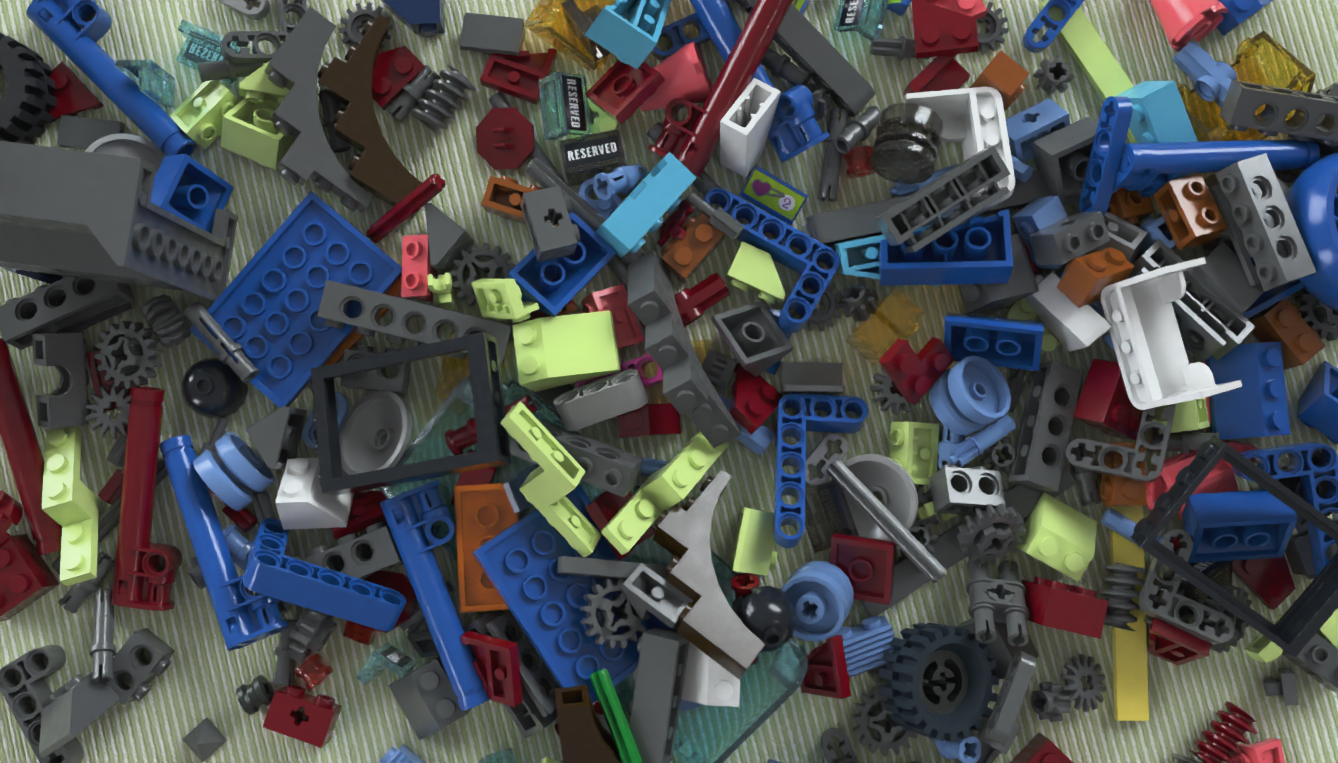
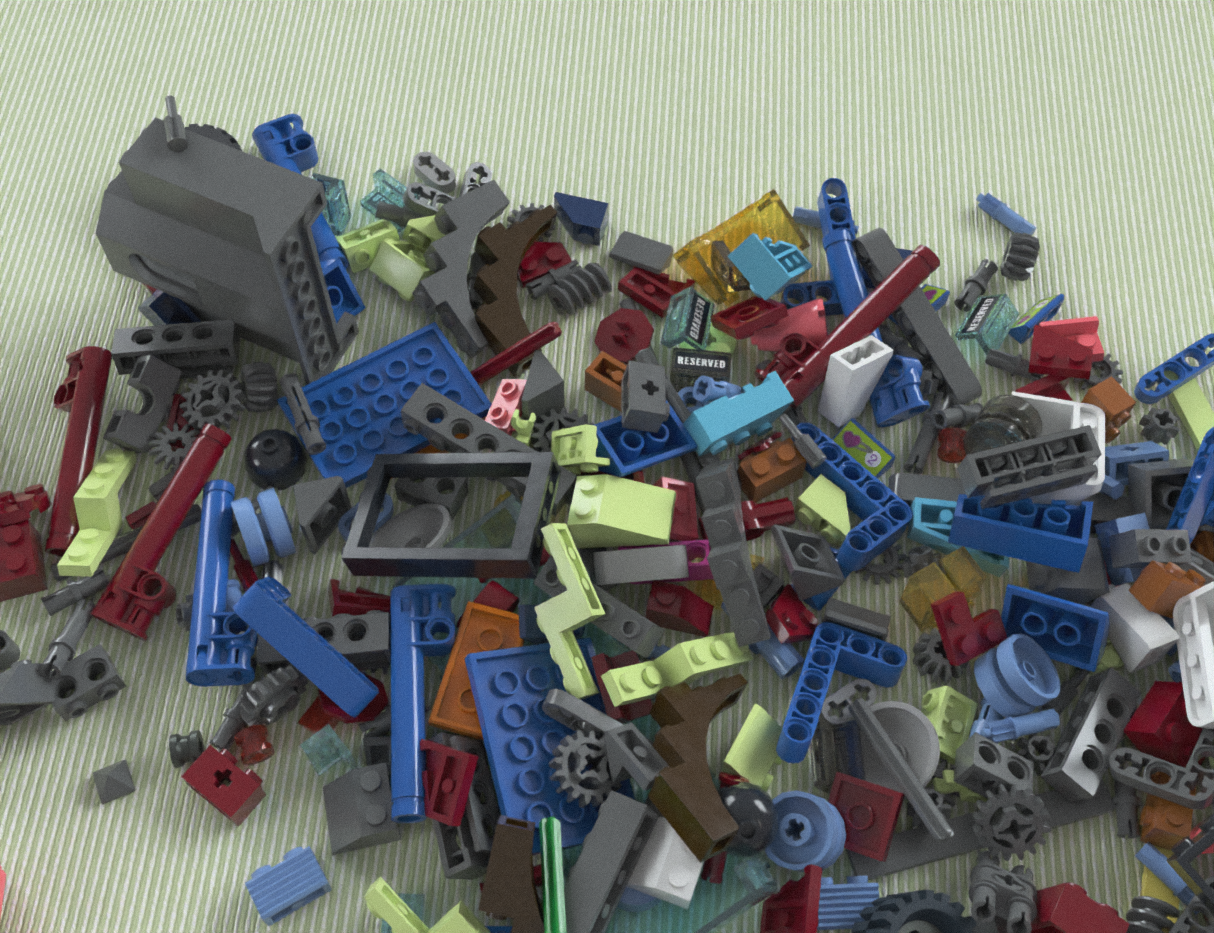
camera: 15 degrees right, 25 degrees down
(302, 501) = (321, 572): white slope -> none
(1060, 537) = (1084, 854): yellowish green slope -> none

